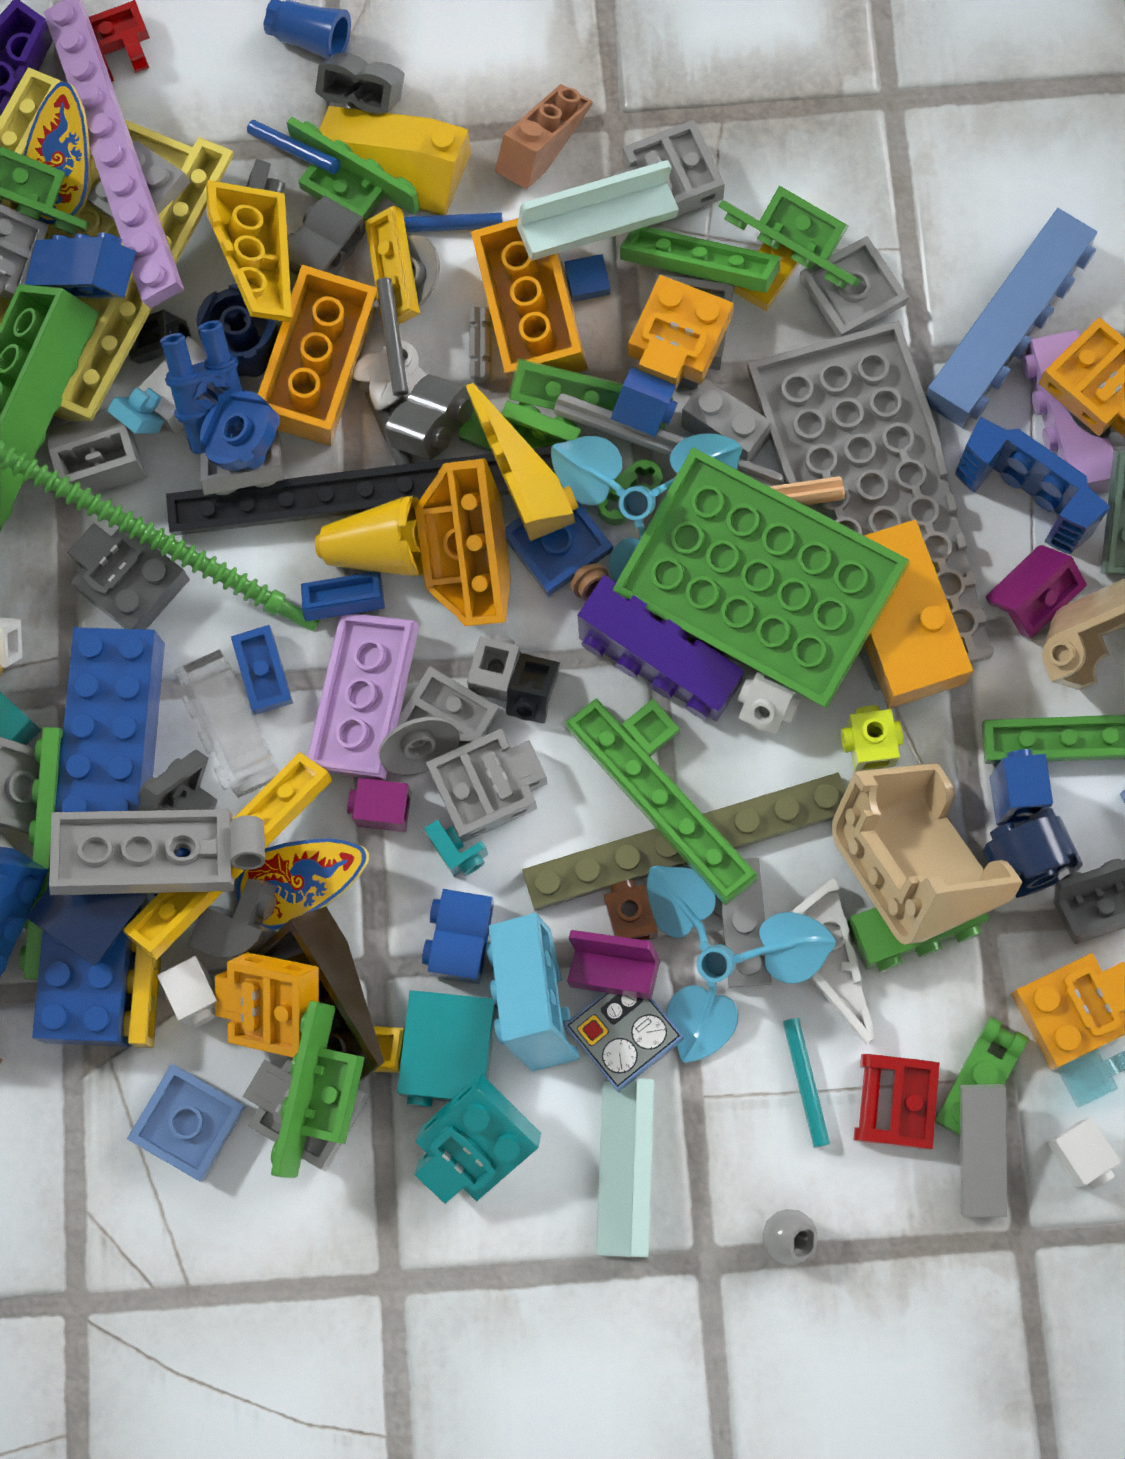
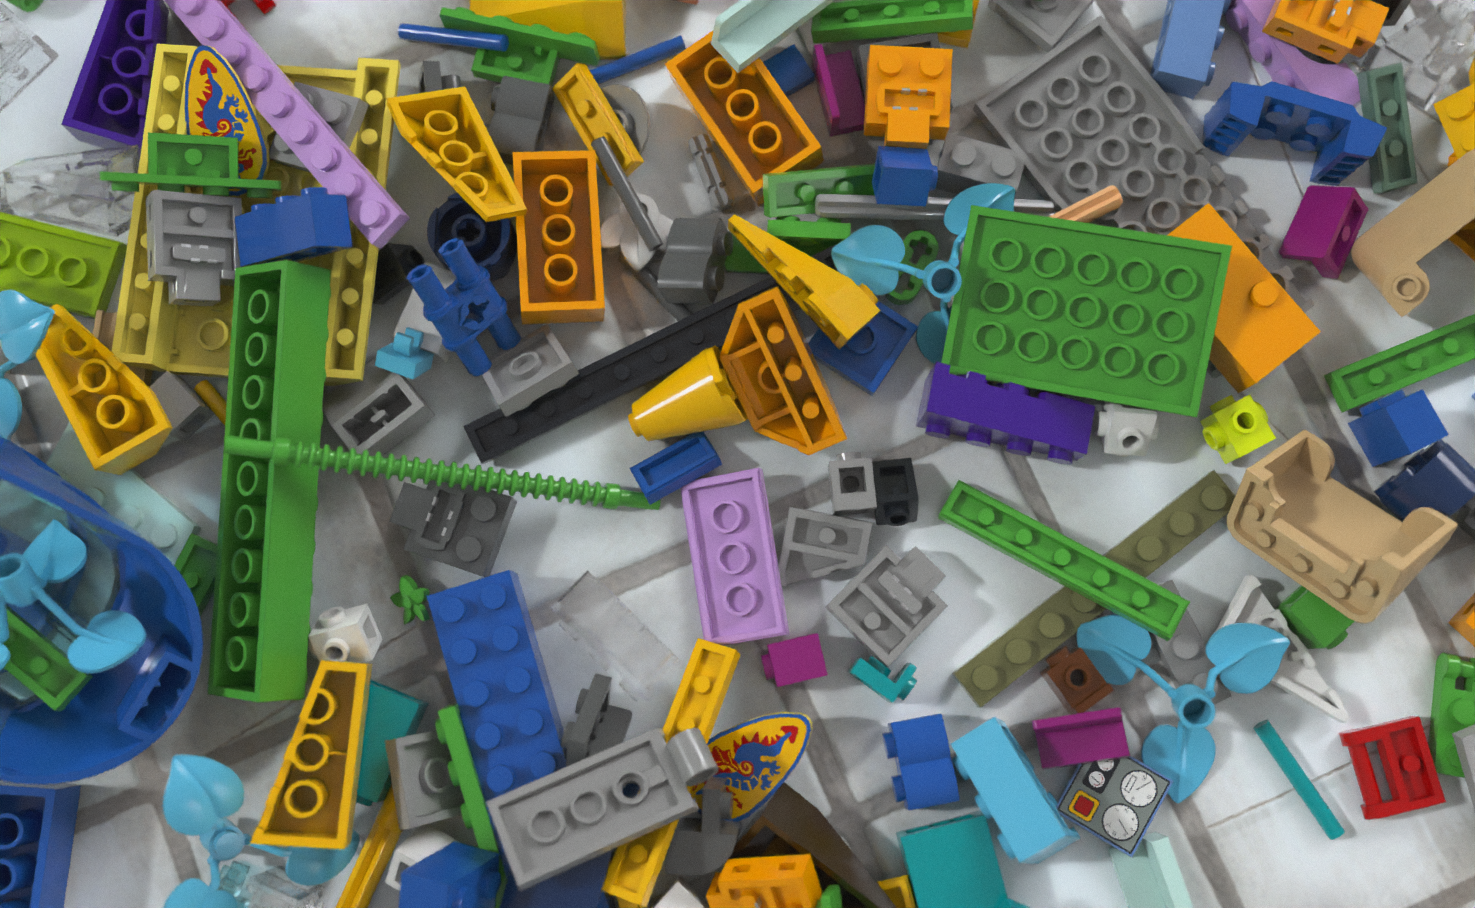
camera: 25 degrees left, 5 degrees up
(61, 631) = (410, 599): none -> bright green plant
(251, 444) = (538, 346): blue plate -> none
(261, 669) = (625, 567): blue plate -> none
(417, 742) = (812, 589): light grey dish -> none
(586, 579) = (910, 368): medium nougat plate -> none
(625, 305) = (838, 91): none -> magenta panel
(651, 727) = (1022, 489): bright green plate -> none

